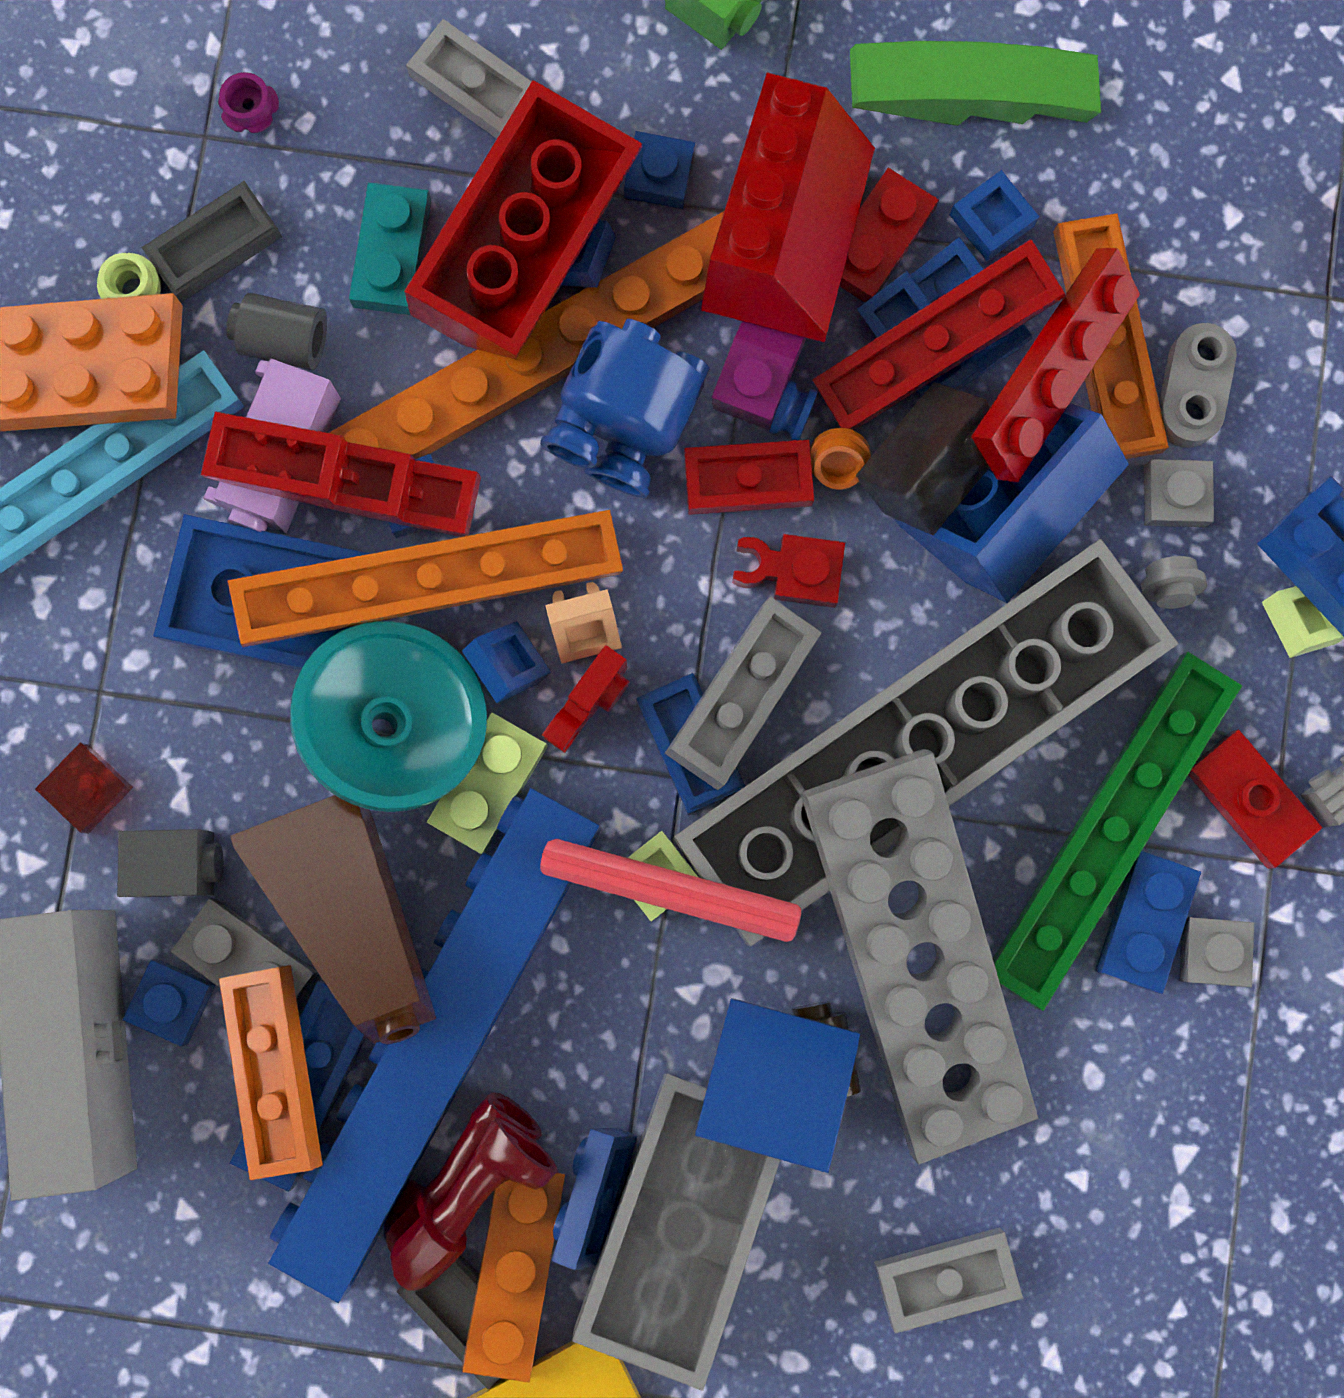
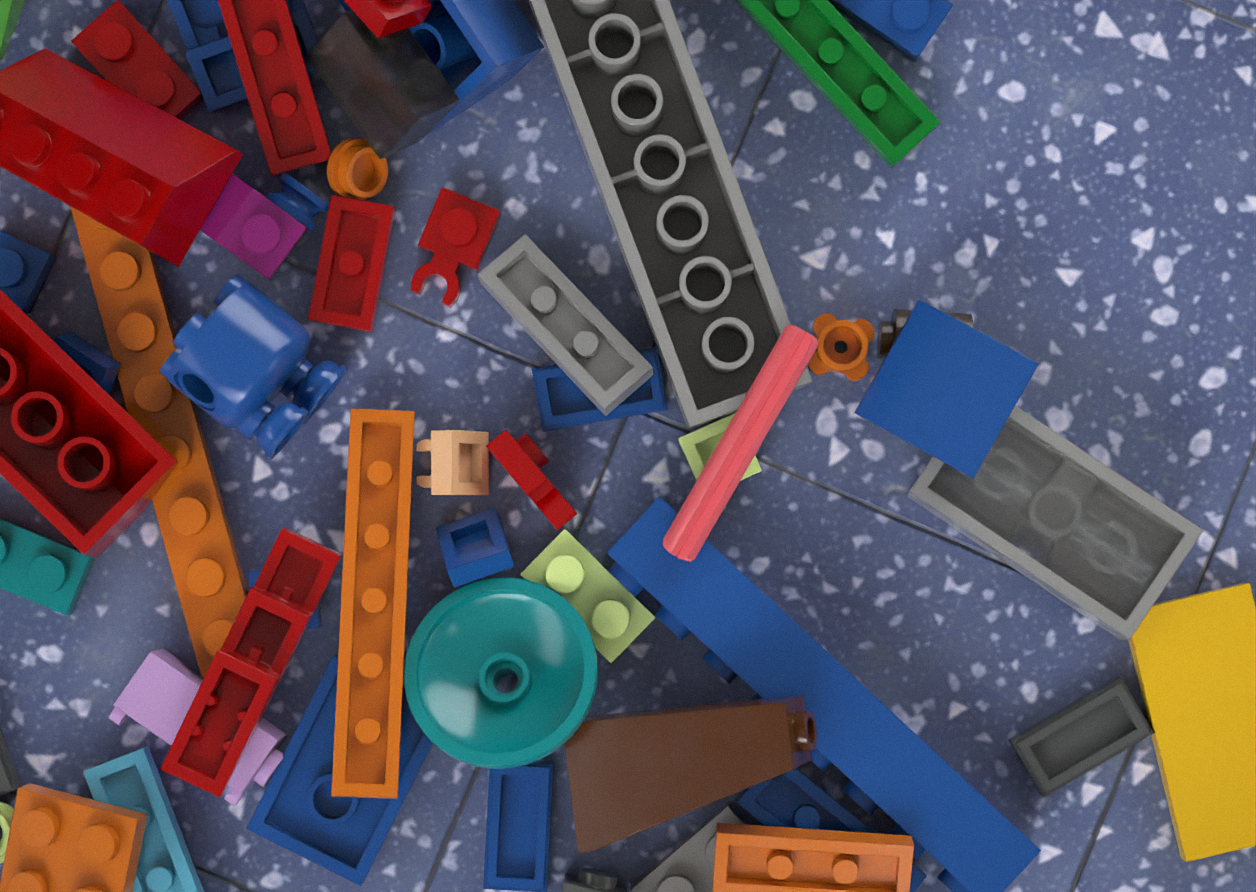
camera: 70 degrees left, 5 degrees up
(245, 775) = (519, 827): none -> blue tile
(278, 330) = (81, 693): dark grey brick -> none
(431, 1221) = (990, 749): dark red piece -> none
(512, 1280) = (1053, 682): orange plate -> none
(586, 1218) = (1024, 604): blue plate -> none
(806, 982) = (855, 336): none -> orange plate
(880, 942) = (839, 258): light grey plate -> none
(948, 1280) = (1163, 279): light grey plate -> none

